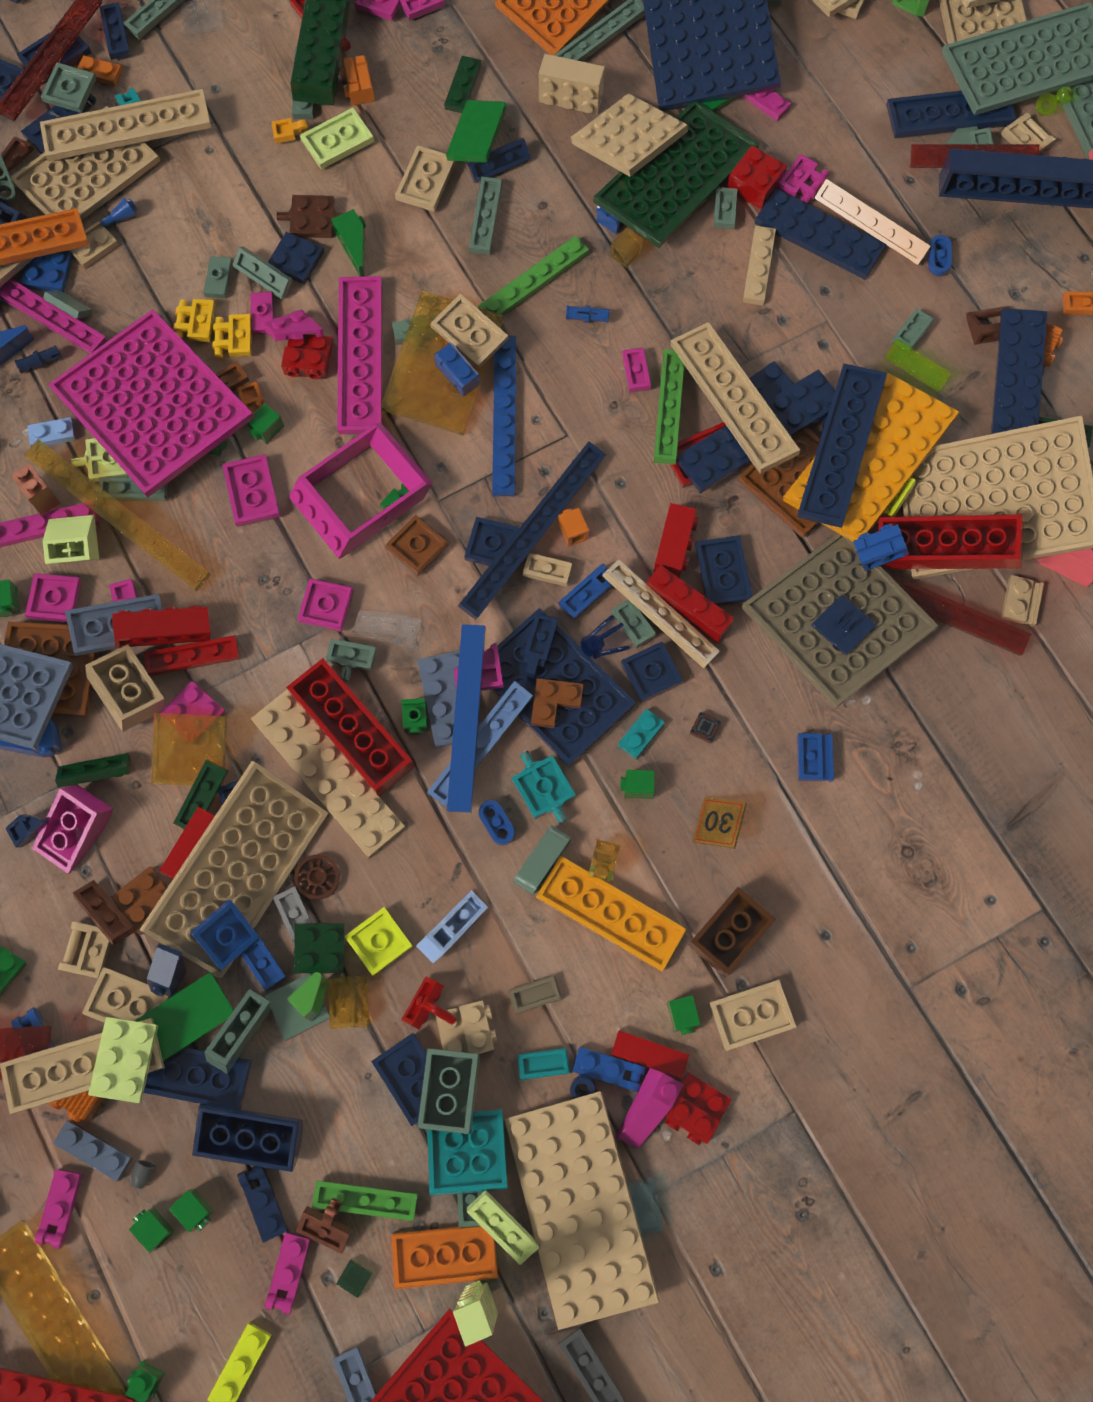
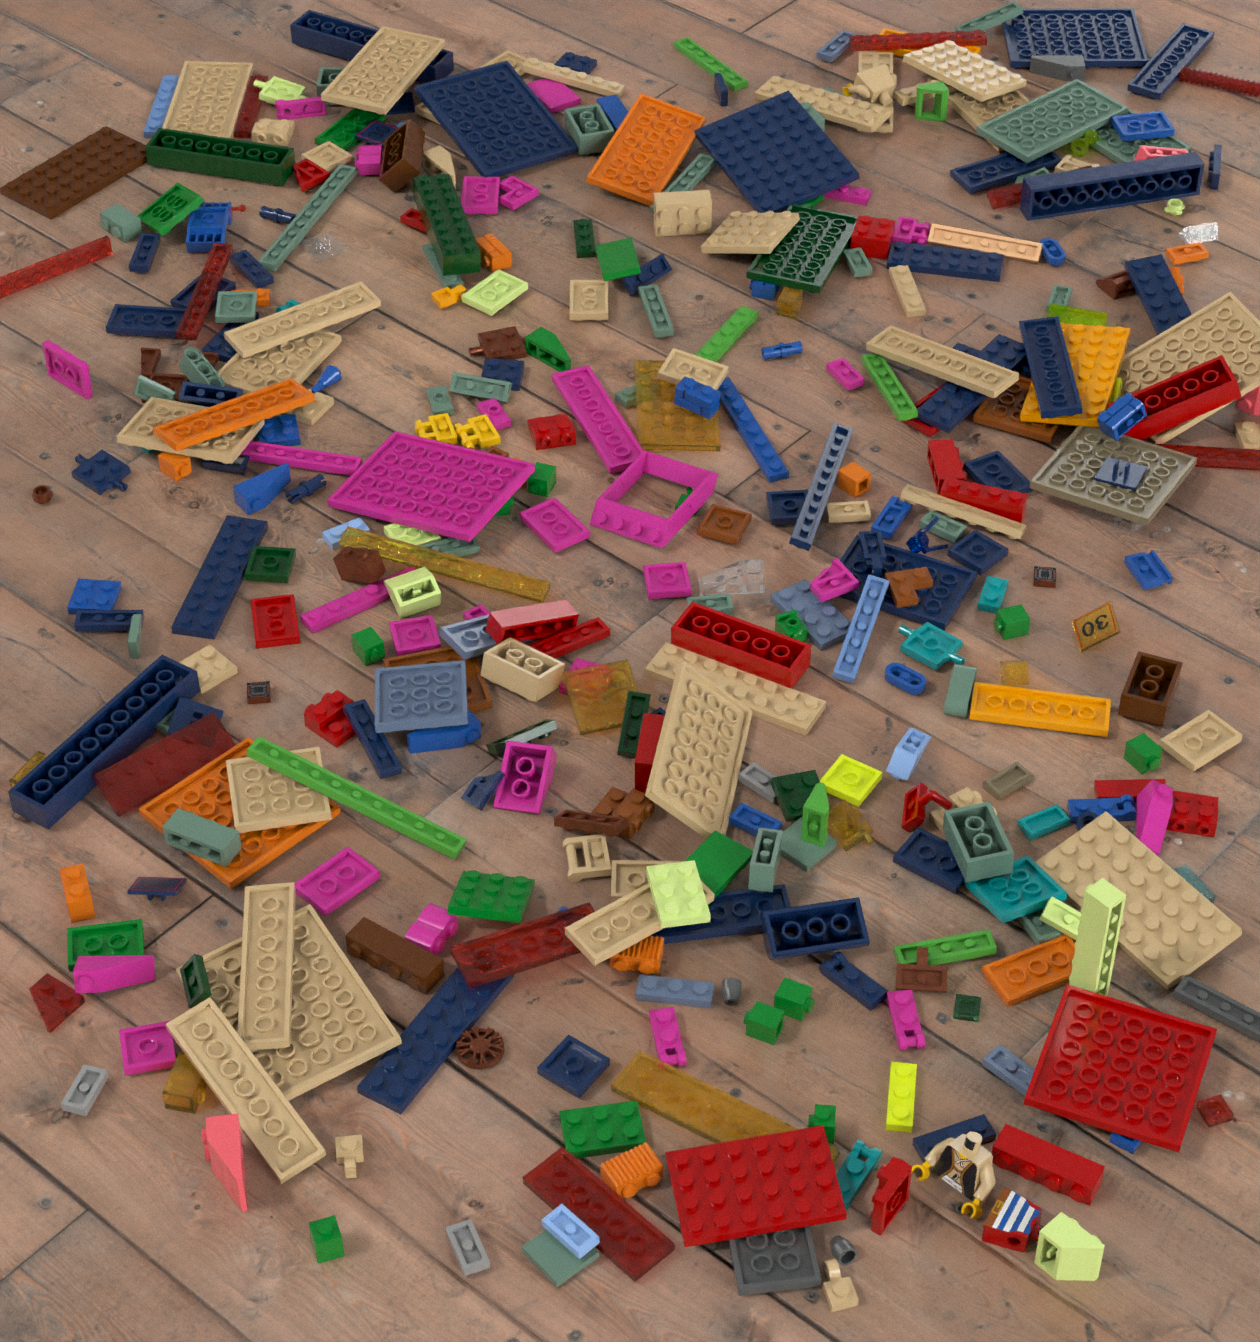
camera: 20 degrees left, 30 degrees down
(67, 304) = (313, 445): sand green tile -> none
(166, 971) = (676, 833): slope -> none
(224, 934) = (715, 797): blue plate -> none
(292, 326) = (530, 411): dark pink wing -> none
(317, 877) = (769, 755): copper wheel -> none
(466, 718) = (842, 609): blue tile -> none

